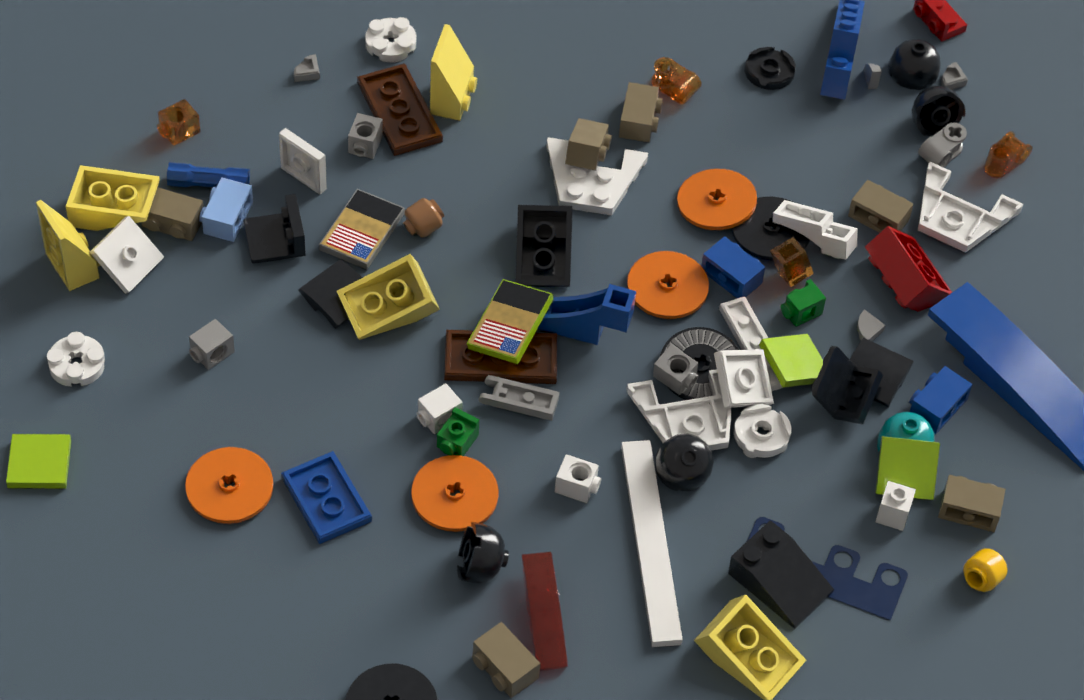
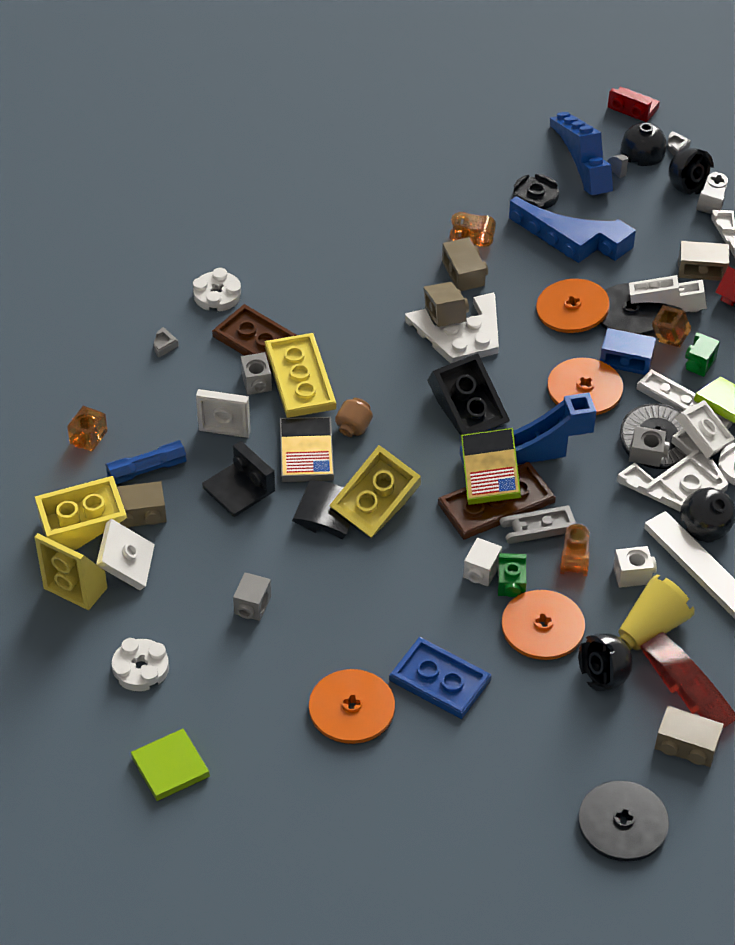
camera: 25 degrees left, 5 degrees down
(226, 209) = (182, 481): light blue brick -> none
(403, 155) = (300, 375): none -> light yellow tile
(450, 77) = (298, 298): light yellow slope -> none
(531, 443) = (575, 550): none -> clear orange piece
(557, 531) = (657, 610): none -> light yellow cone
(772, 131) = (571, 235): none -> blue arch

